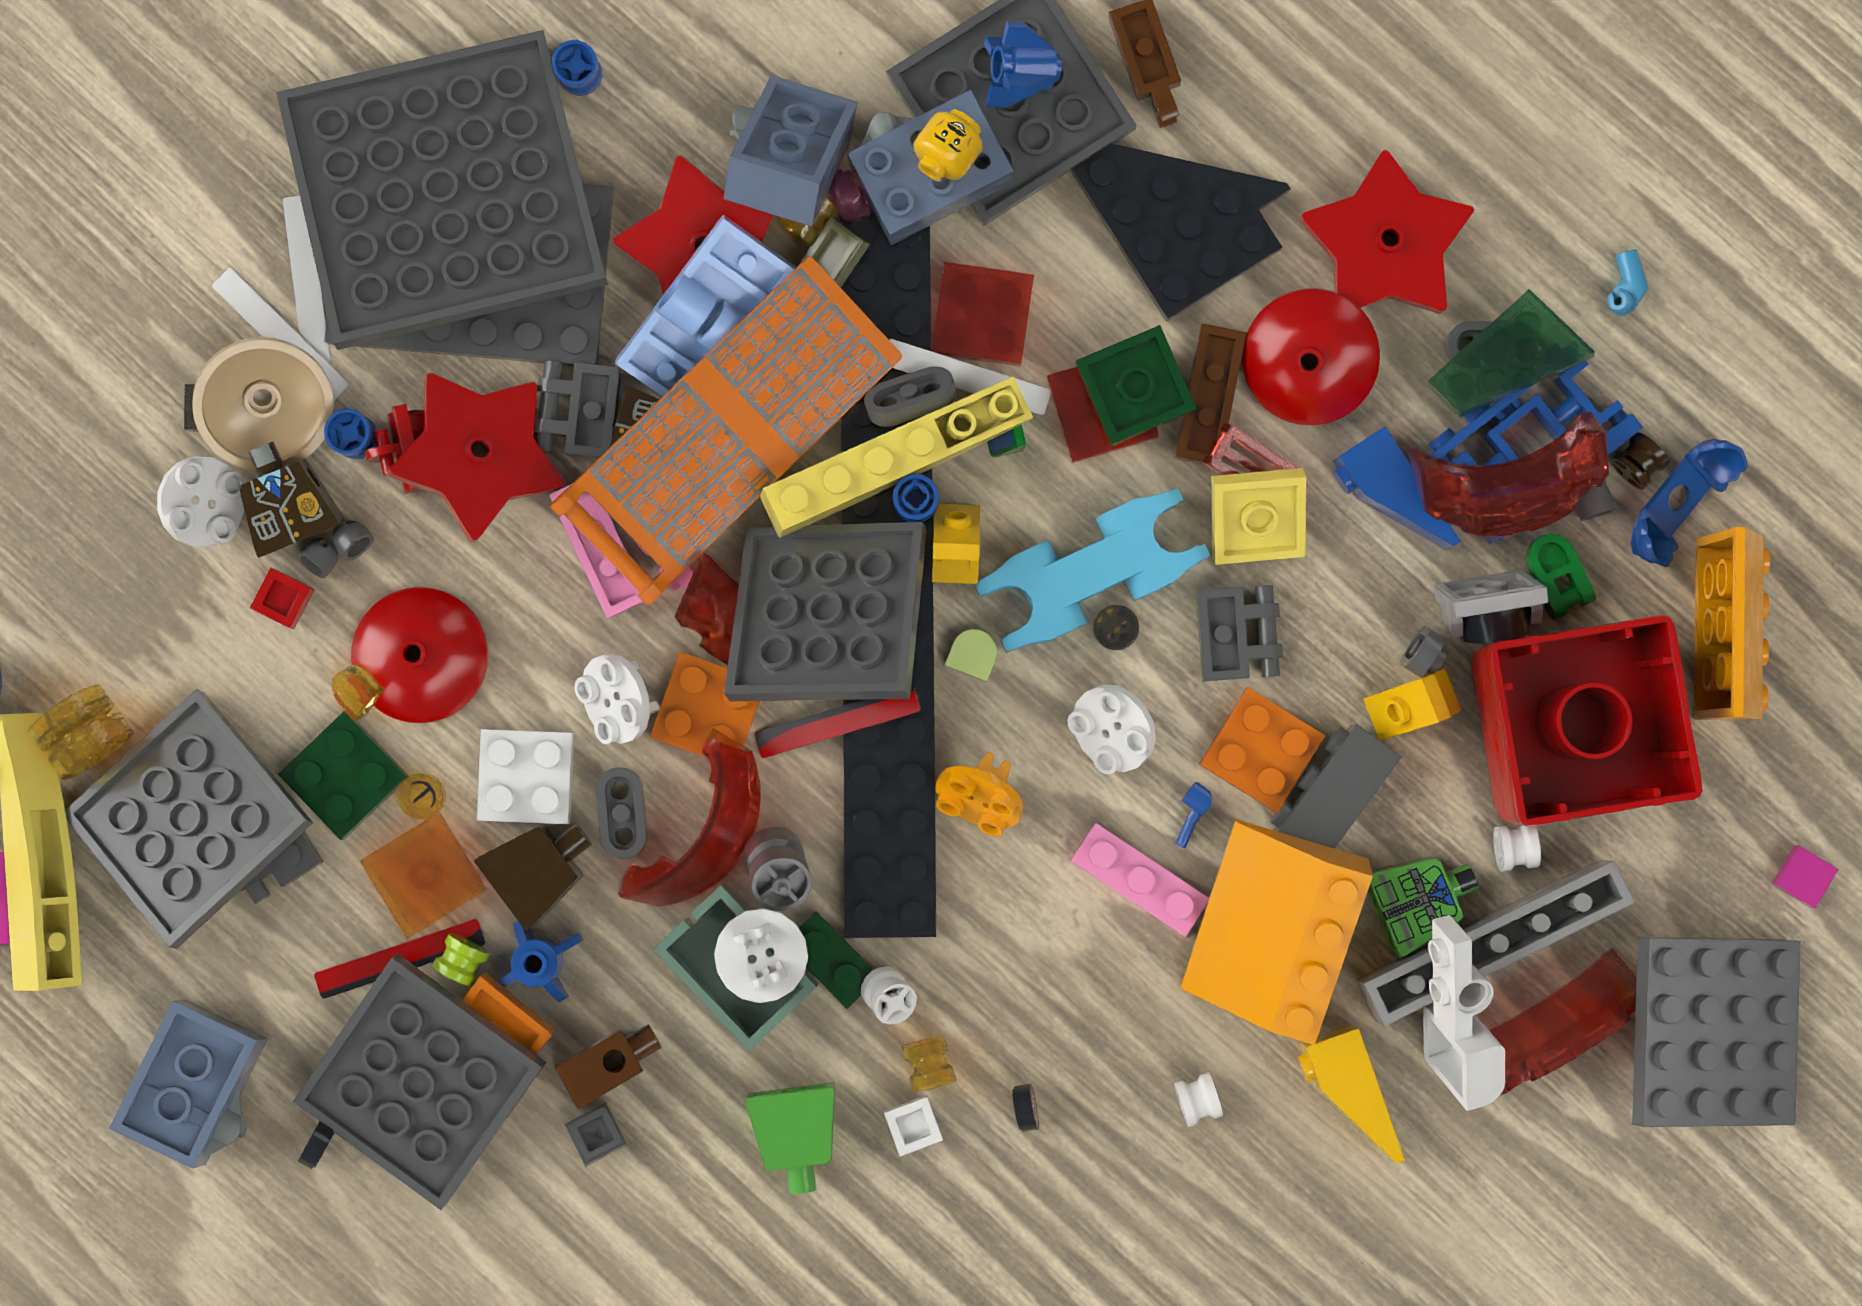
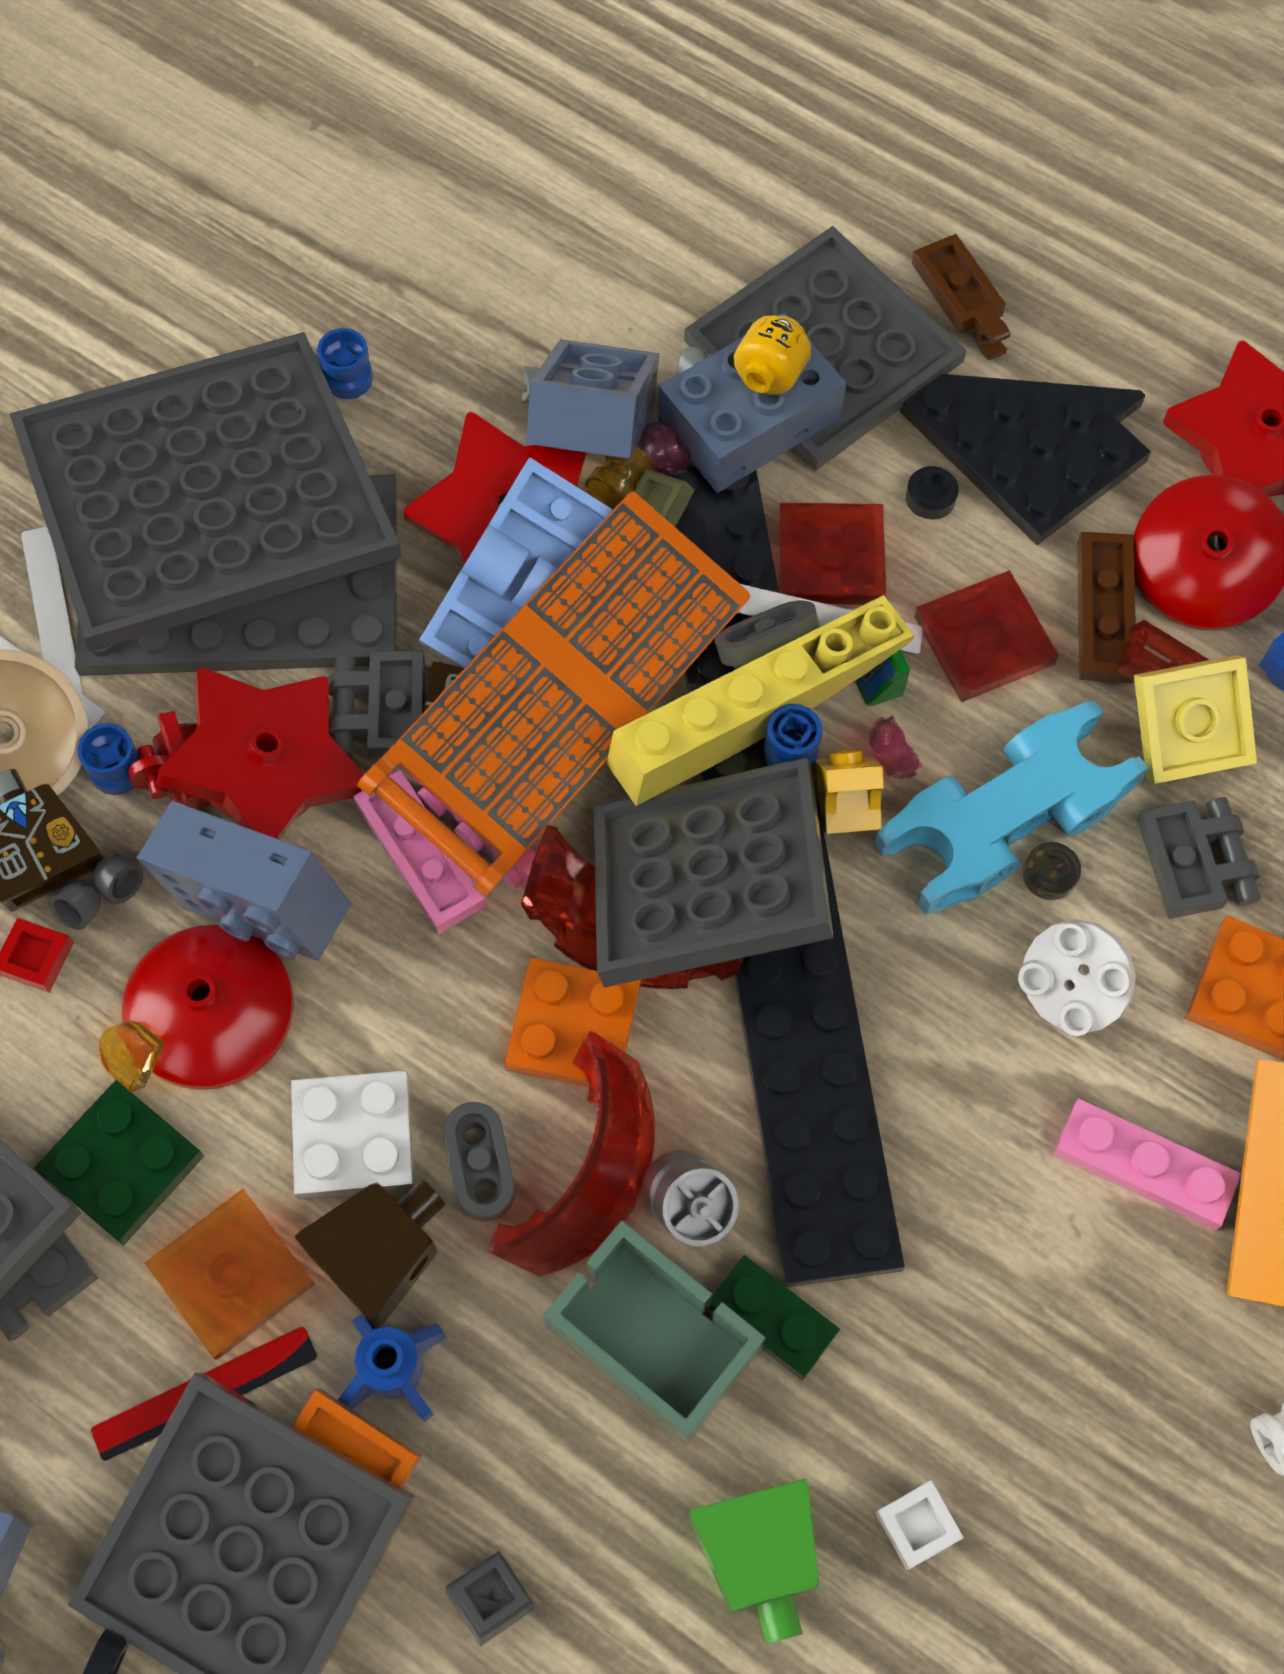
camera: 10 degrees left, 20 degrees down
(421, 796) = (220, 1173): clear yellow tile -> none
(453, 573) = (245, 881): none -> sand blue piece
(460, 959) = (286, 1376): lime wheel -> none
(585, 1074) = (472, 1509): reddish brown torso -> none
(615, 698) = (454, 1036): white plate -> none
(769, 976) = (704, 1325): white plate -> none
(833, 723) = (736, 1014): red sticker -> none
(890, 1007) = (870, 1340): white wheel -> none
(929, 1062) = (925, 1434): clear yellow wheel -> none
(973, 654) = (887, 920): yellowish green tile -> none
(980, 796) = (931, 1076): light orange plate -> none
(1002, 507) = (891, 749): none -> clear pink plate
(1020, 65) = (835, 295): blue brick -> none
(1025, 1107) = (1064, 1479): black tile -> none
(1082, 260) = (932, 492): none -> black tile
(1135, 385) = (1023, 595): dark green plate -> none
(1199, 800) = (1199, 1056): blue hand -> none

